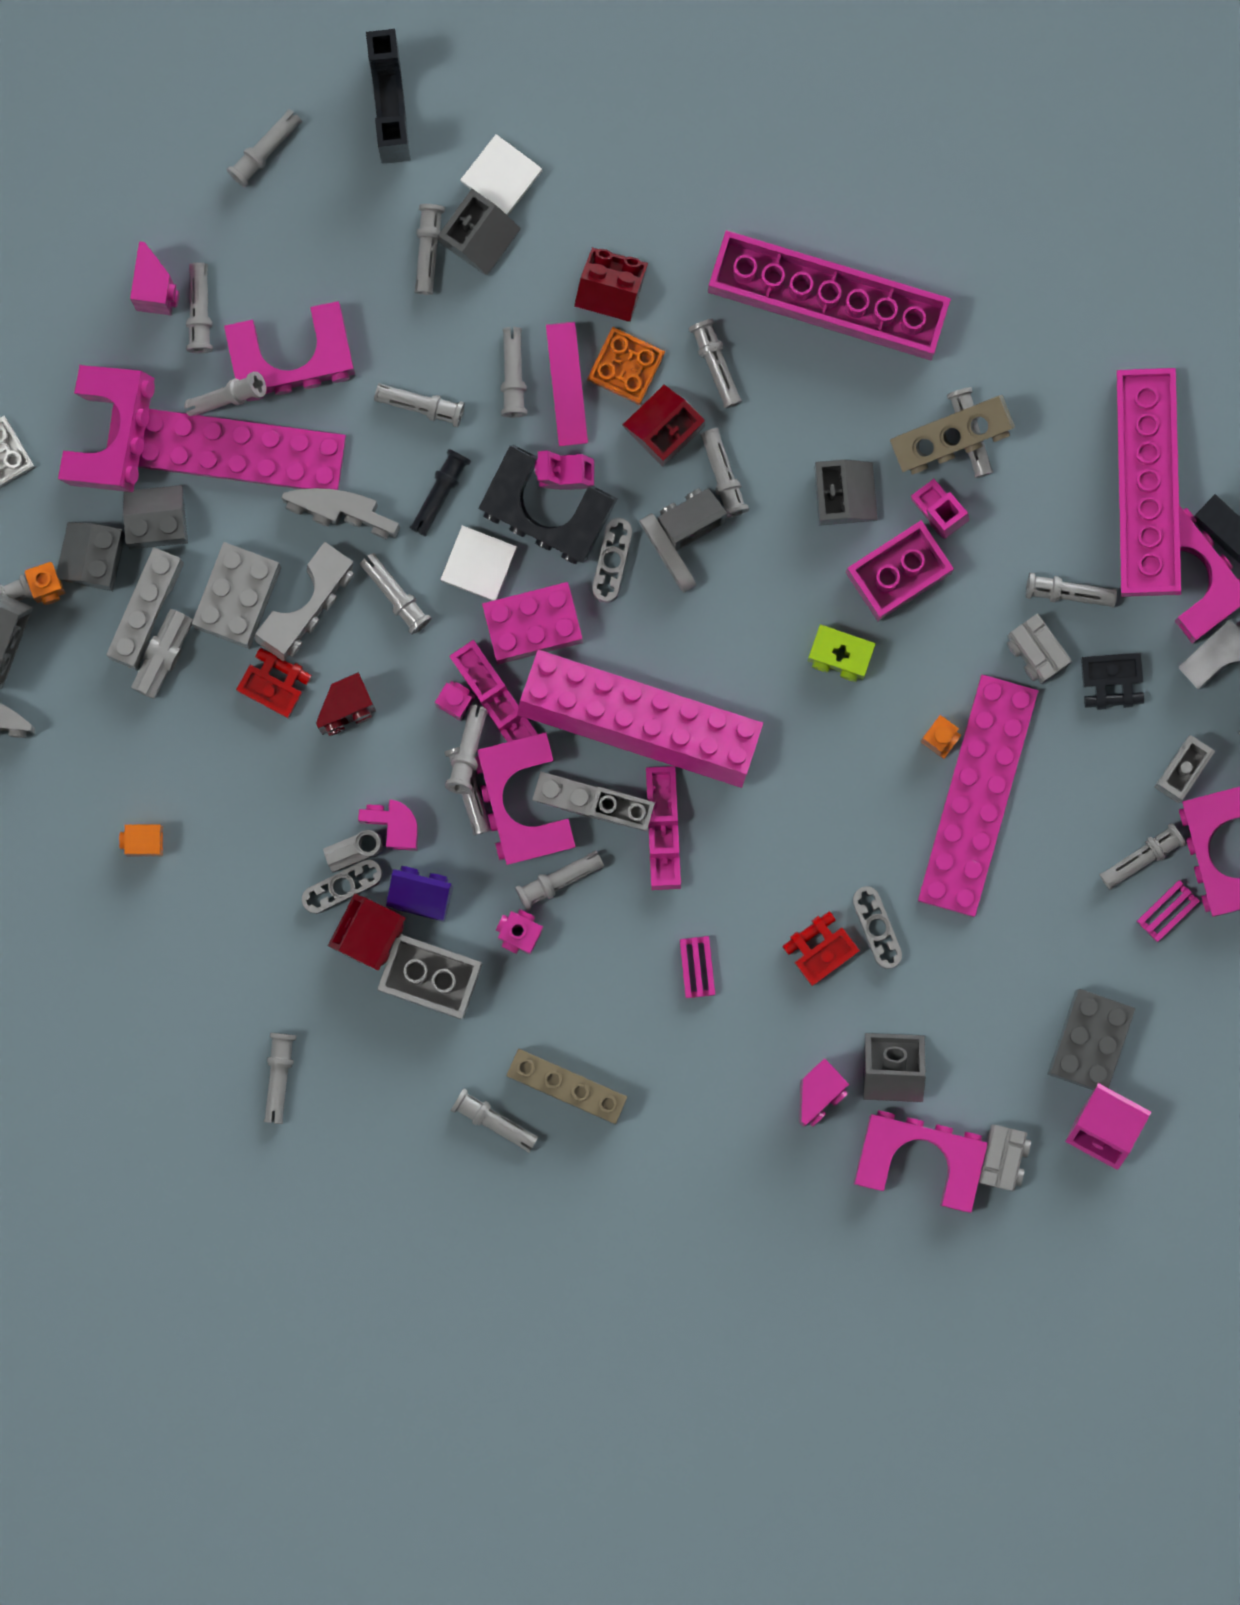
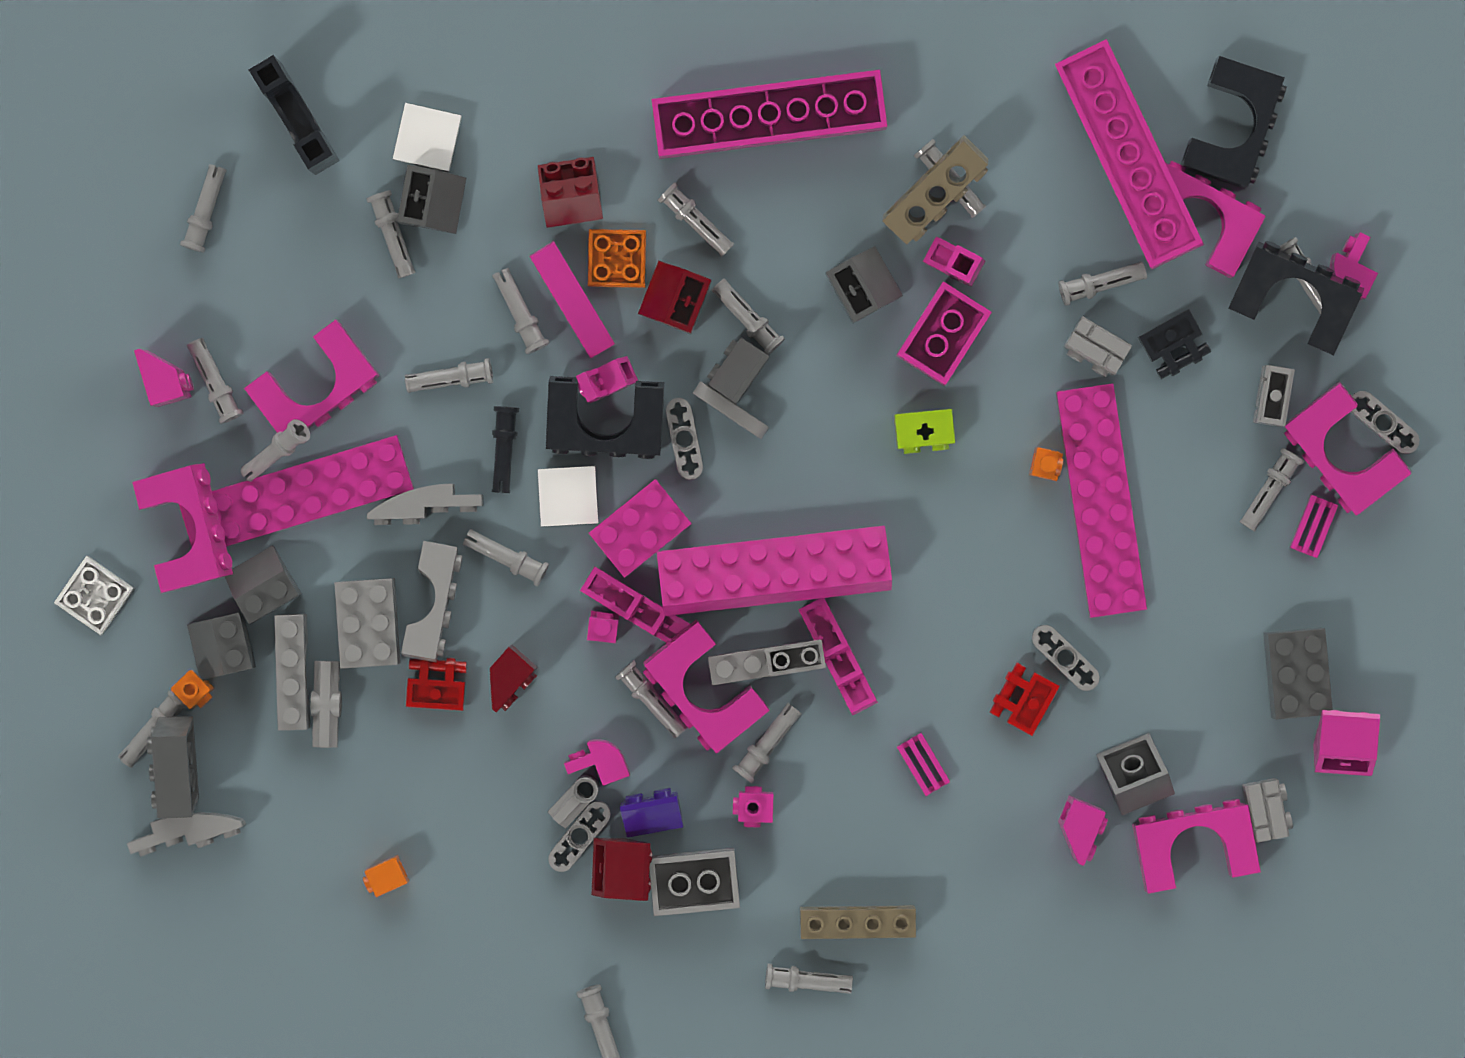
camera: 25 degrees left, 5 degrees up
(464, 762) = (637, 681): light grey pin -> none

